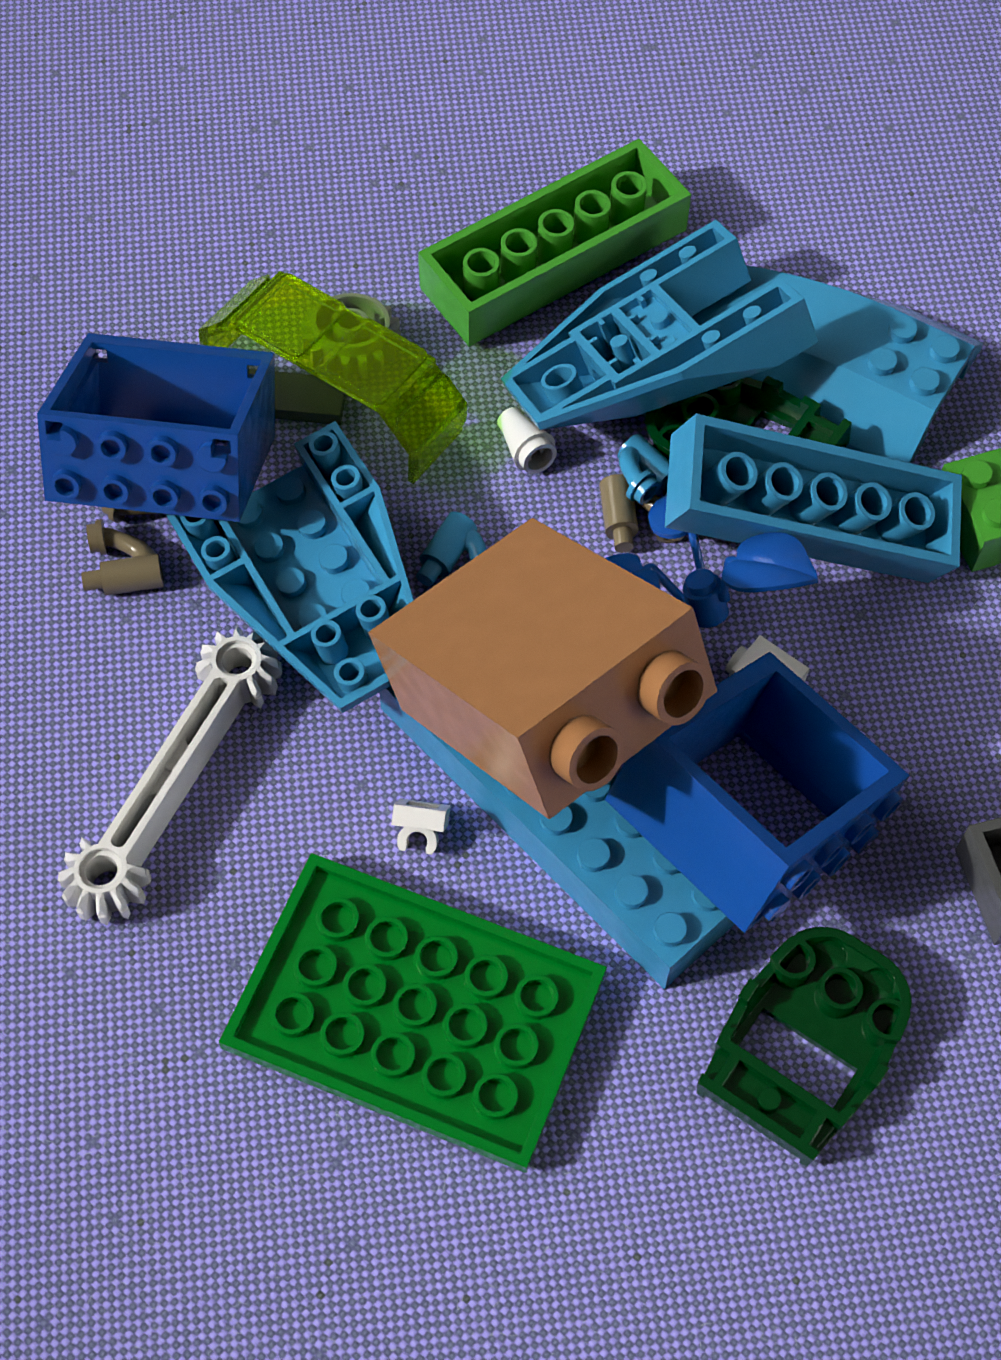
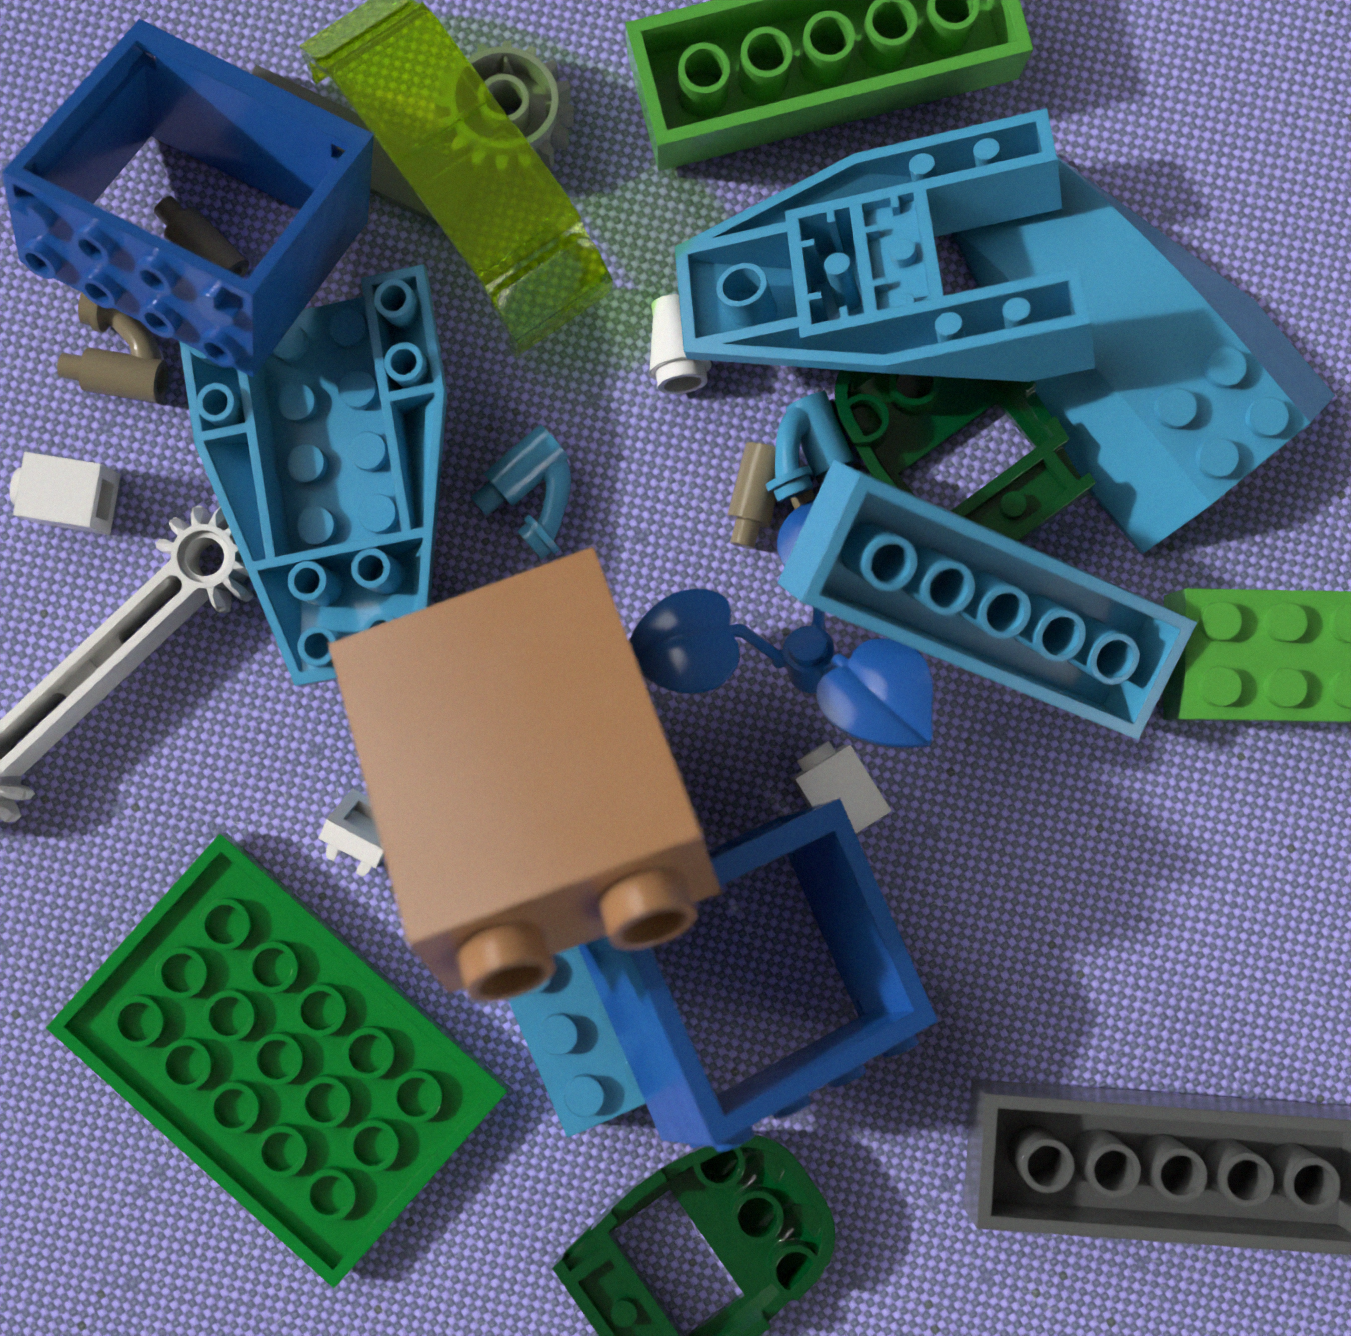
camera: 15 degrees right, 25 degrees up
(113, 659) = (65, 493): none -> white brick

